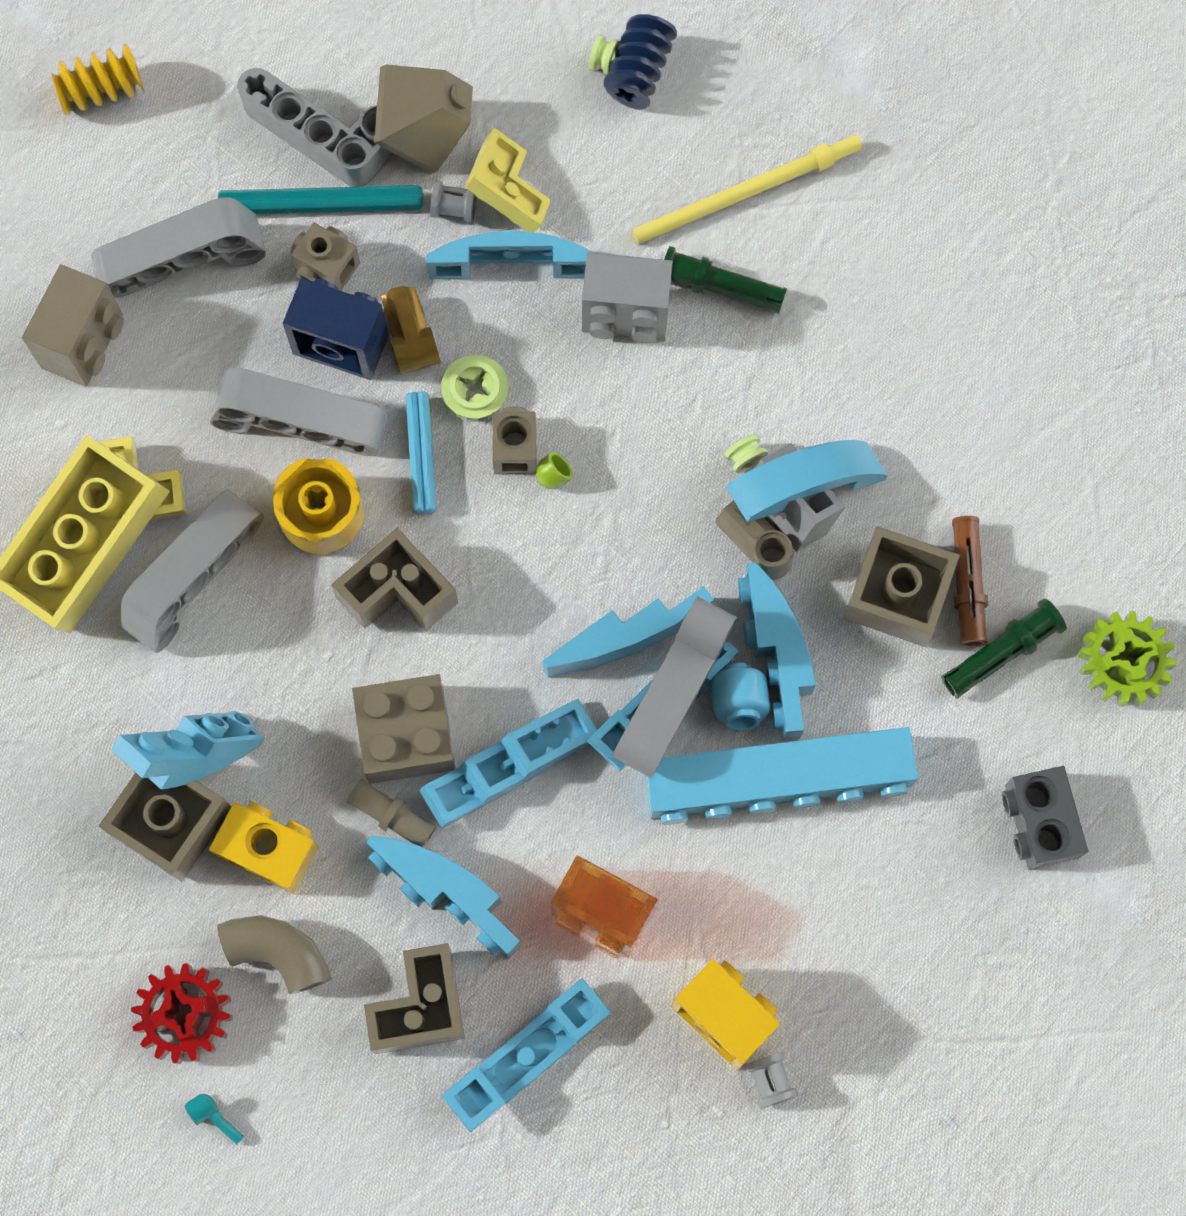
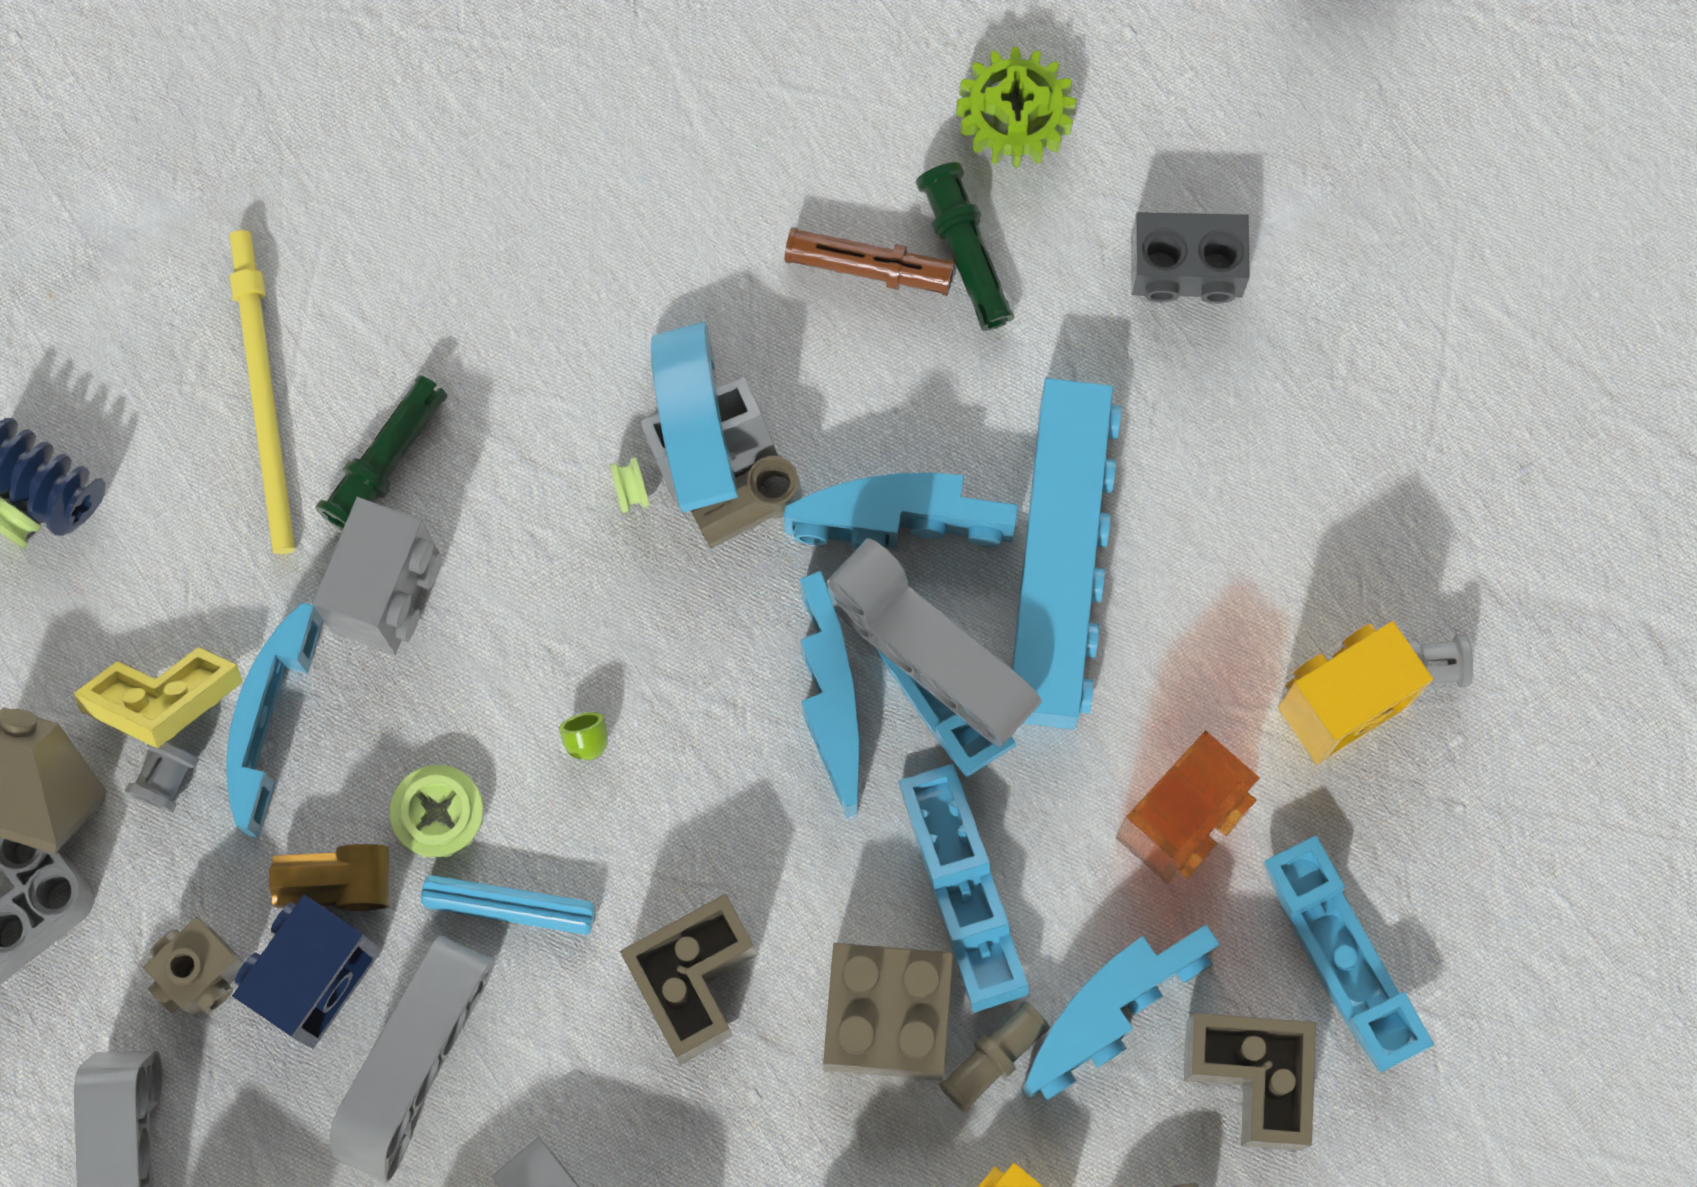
camera: 75 degrees left, 0 degrees up
(325, 483) = (518, 1046): yellow brick -> none
(328, 199) = (99, 956): teal axle -> none
(517, 458) = (544, 796): dark tan brick -> none
(740, 697) = (951, 573): medium azure head -> none
(901, 586) = (860, 340): dark tan brick -> none

